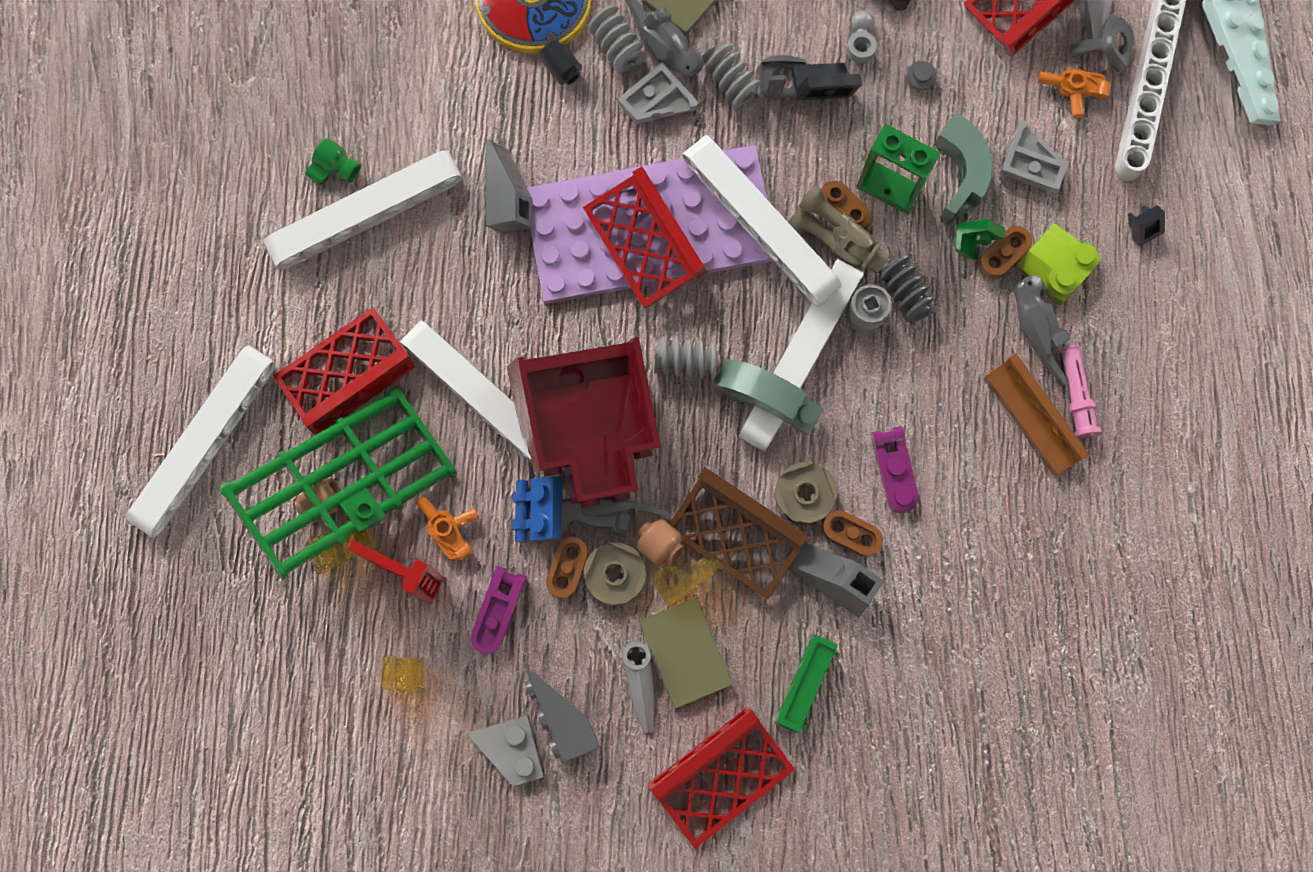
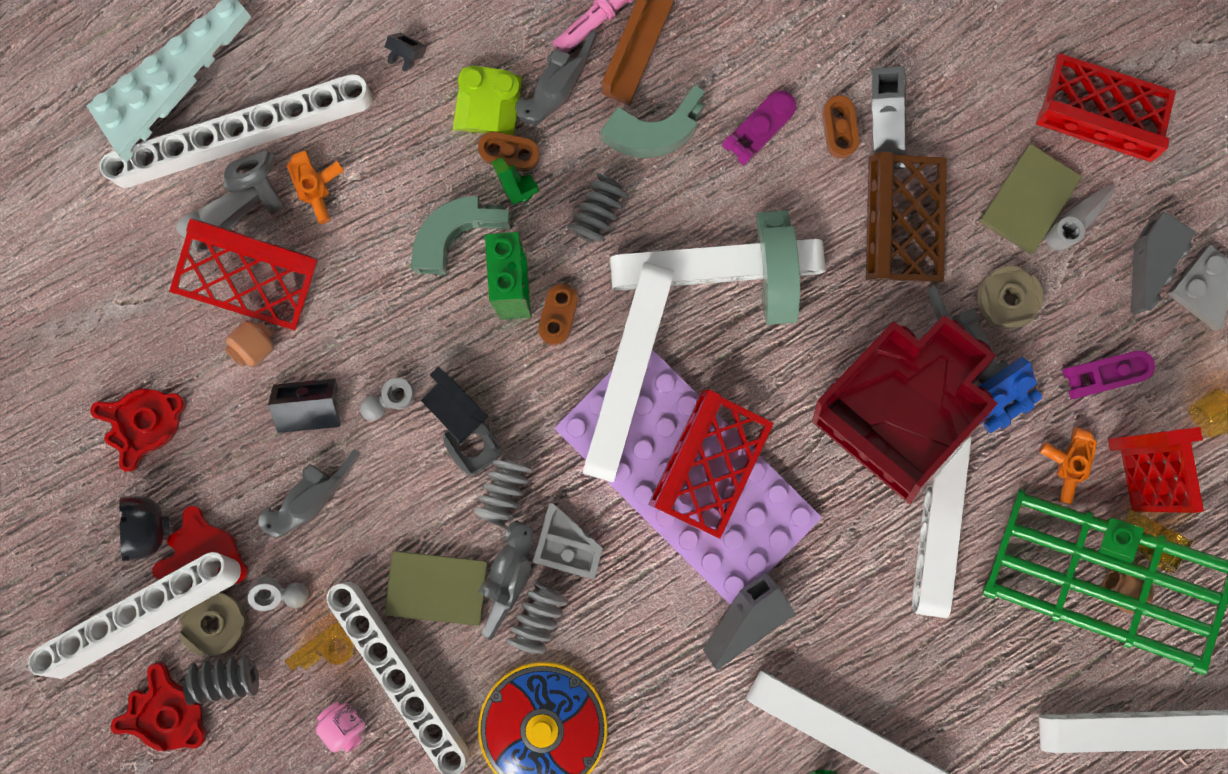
camera: 125 degrees left, 5 degrees up
(352, 393) = (1021, 629): red fence -> none
(561, 62) = (593, 655): black brick -> none
(567, 568) = (1031, 339): dark orange plate -> none
(660, 542) = (962, 275): nougat head -> none
(686, 357) = (789, 358): light grey piece -> none
(687, 583) = (977, 231): clear yellow plate -> none
(806, 683) = (990, 85): green container -> none
(814, 477) = (831, 168): dark tan plate -> none
(847, 239) = (591, 289): dark tan piece -> none
(868, 308) = (641, 230): light grey wheel -> none
(921, 75) = (389, 324): dark grey plate -> none
(936, 392) = (658, 138): none -> sand green arch
(1033, 161) = (408, 179): light grey wing -> none

